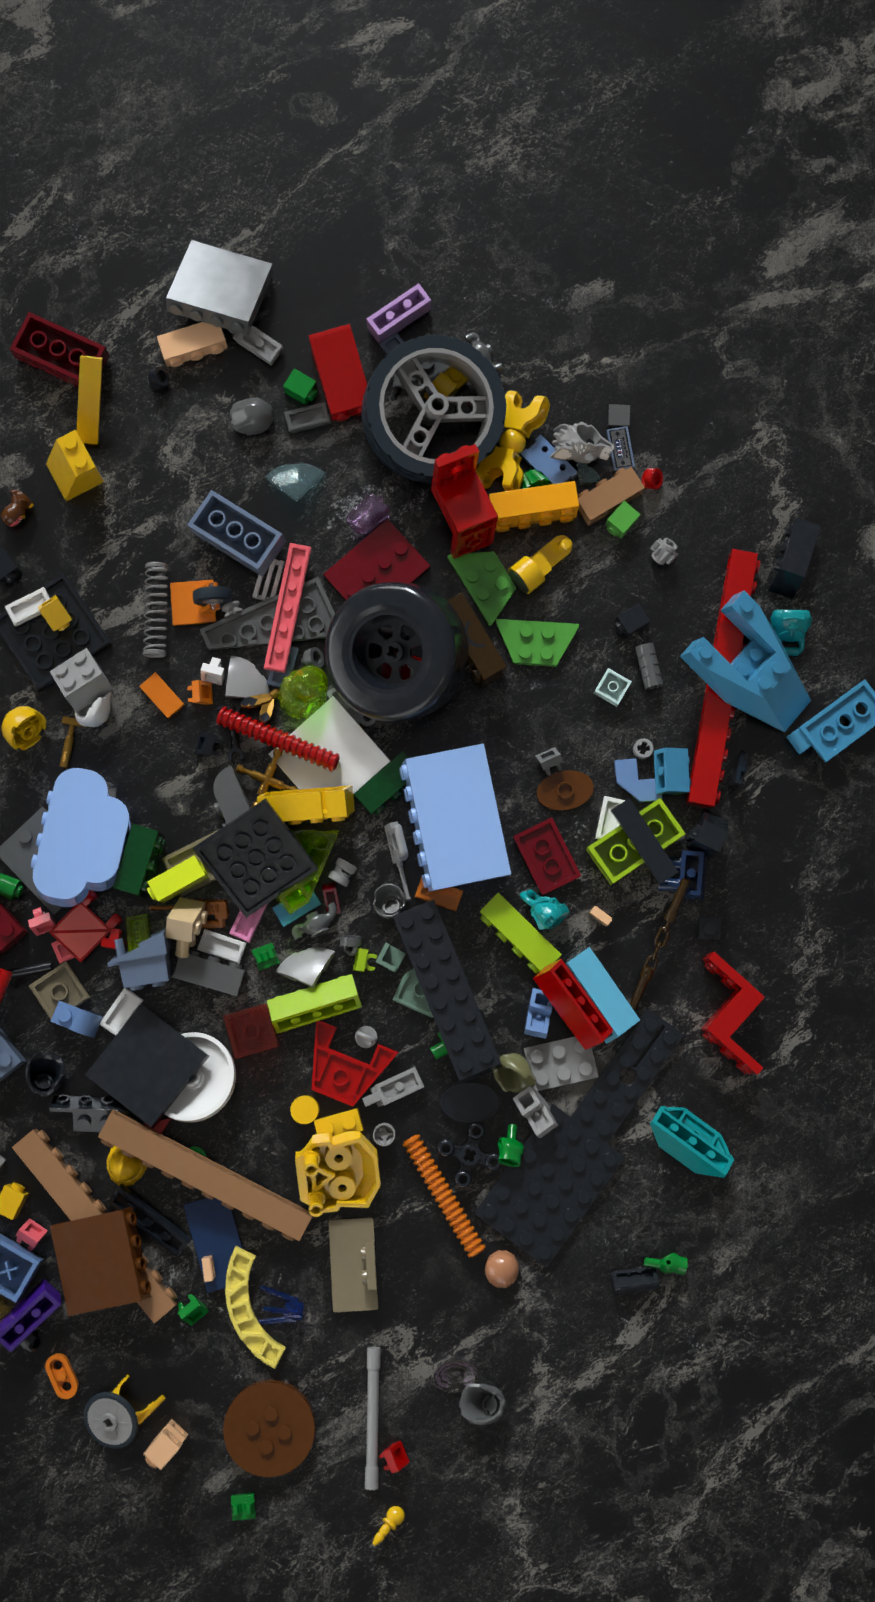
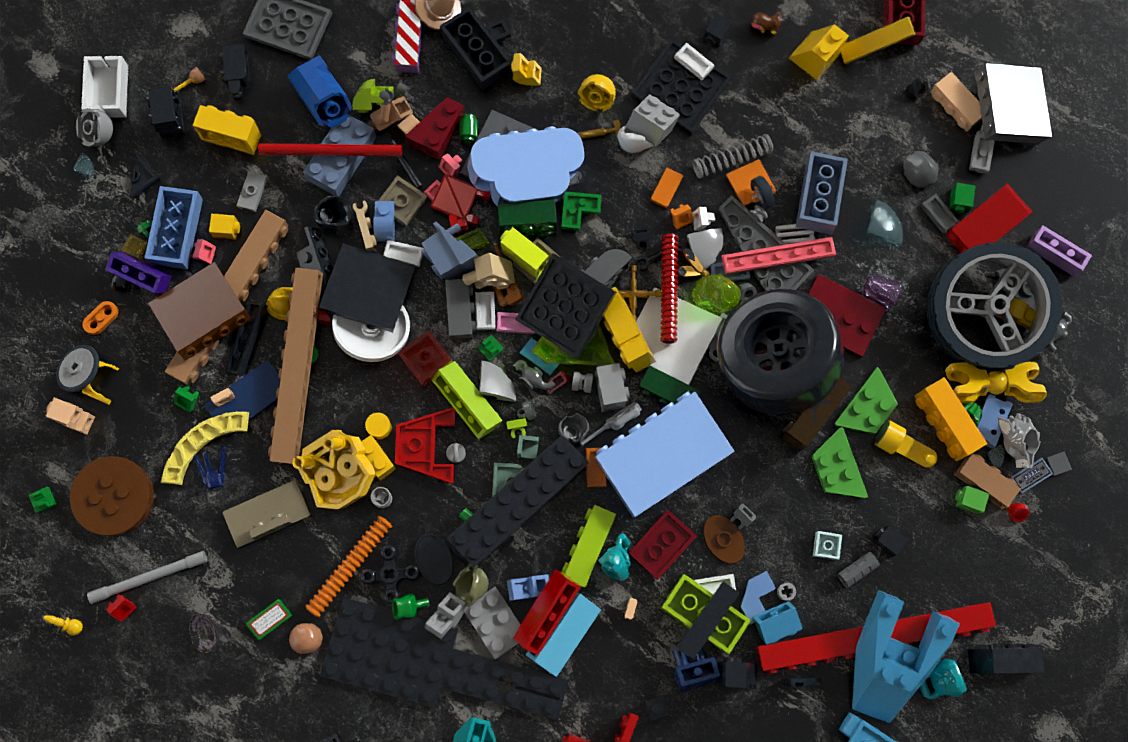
camera: 65 degrees right, 5 degrees down
(55, 614) = (696, 80): yellow brick -> none
(72, 1042) = (365, 225): none -> tan plate
(142, 801) = (576, 204): none -> green plate
(361, 843) = (611, 387): none -> light grey brick
(394, 1088) = (422, 491): light grey hinge -> none
(464, 501) = (929, 357): red bracket -> none
(467, 1301) = (269, 619): none -> slope
(482, 1404) = (187, 663): dark grey hair -> none
(647, 972) = (598, 667): dark brown piece -> none
(664, 551) = (961, 545): light grey gear -> none

